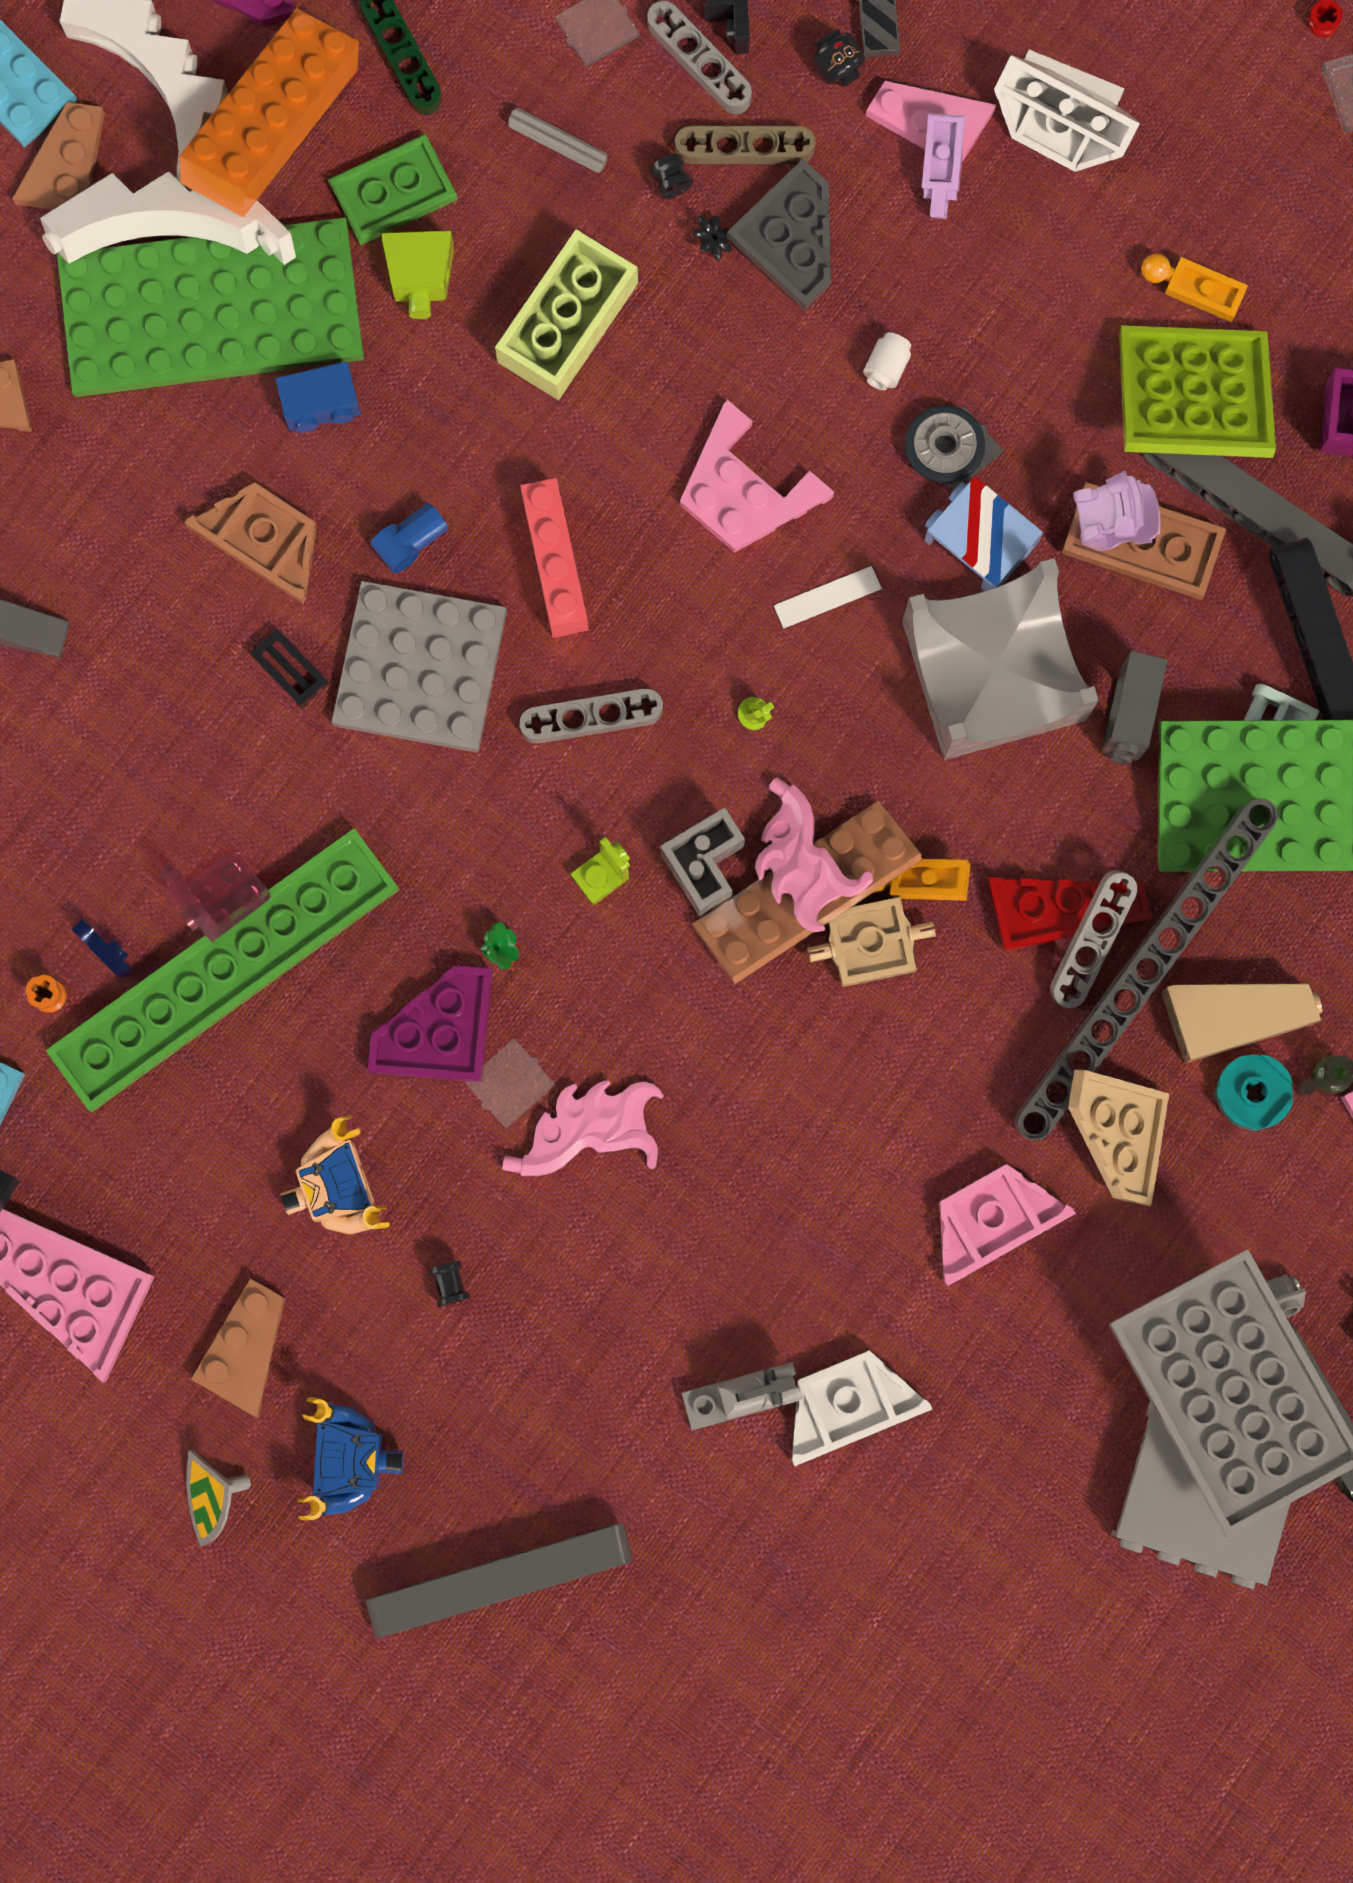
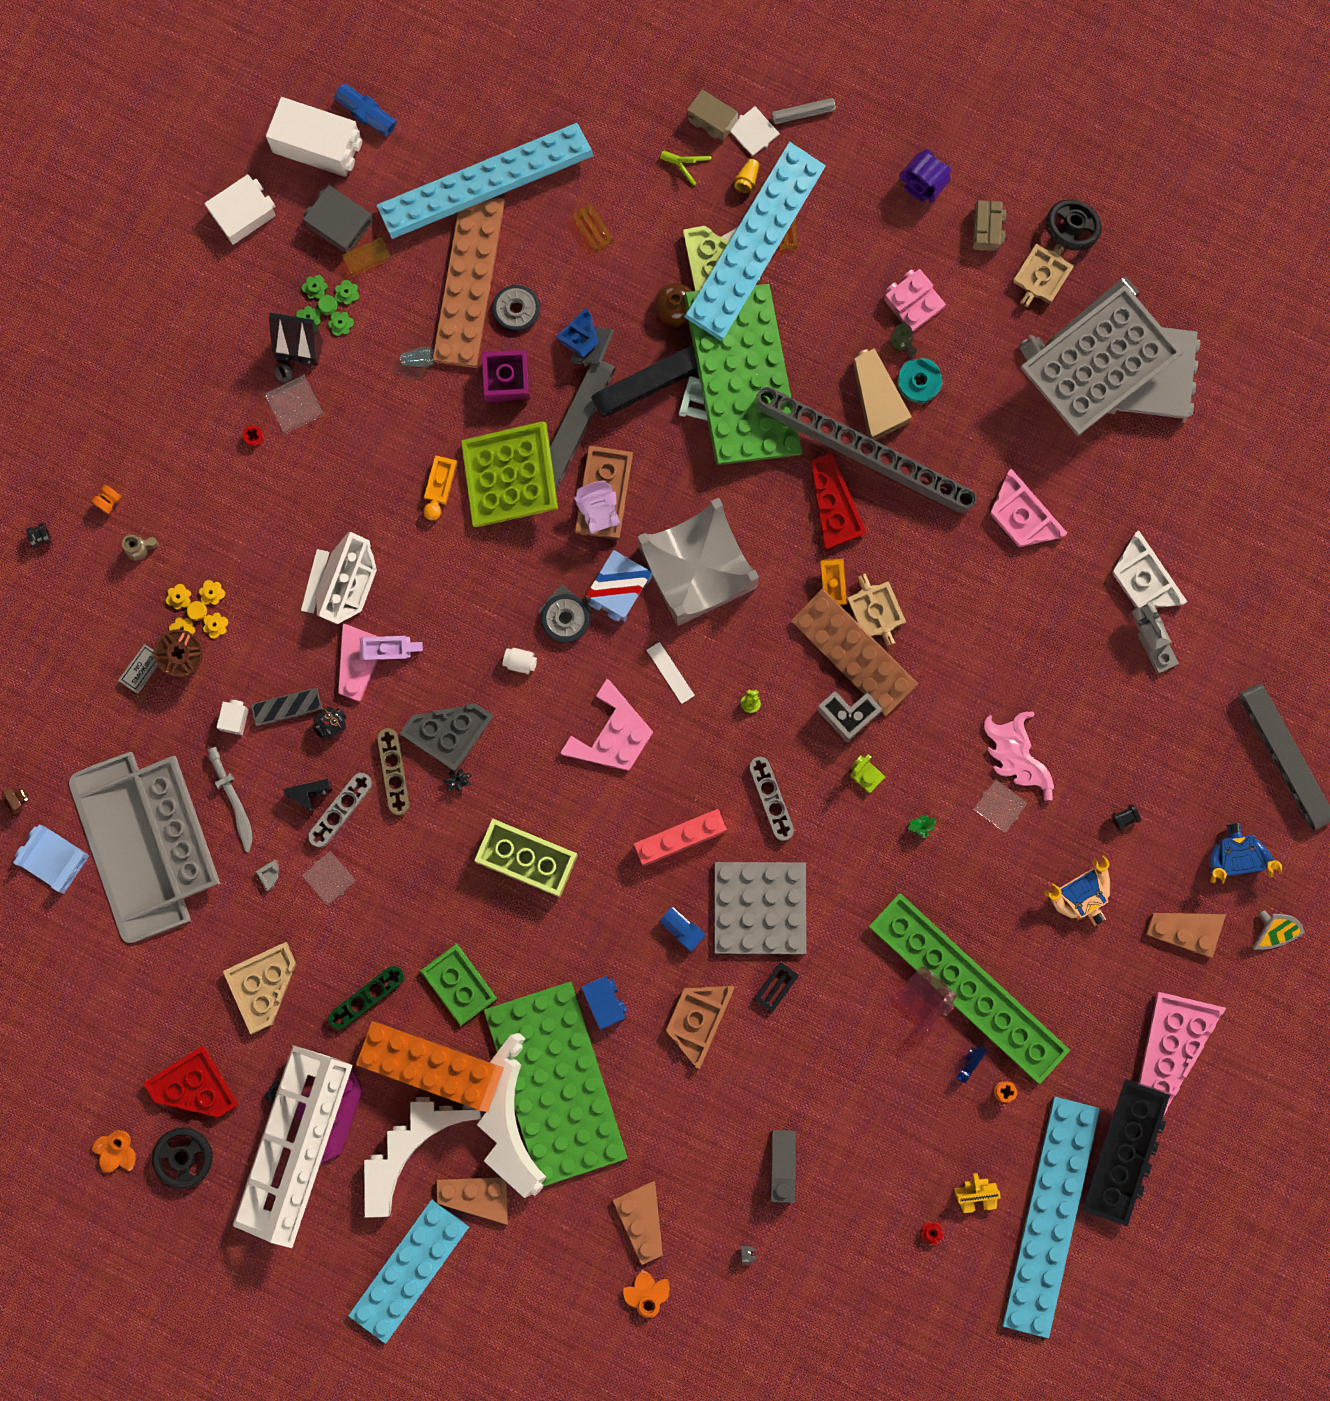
camera: 100 degrees left, 0 degrees up
(419, 268) = (510, 957): lime torso -> none
(438, 1031) = (979, 852): magenta plate -> none
(557, 140) = (409, 887): light grey axle -> none
(671, 176) = (423, 812): black wheel -> none
(797, 864) = (841, 659): bright pink piece -> none
(1099, 941) = (851, 482): light grey beam -> none
(1121, 1130) = (960, 449): tan plate -> none
(1134, 707) = (711, 480): dark grey window -> none

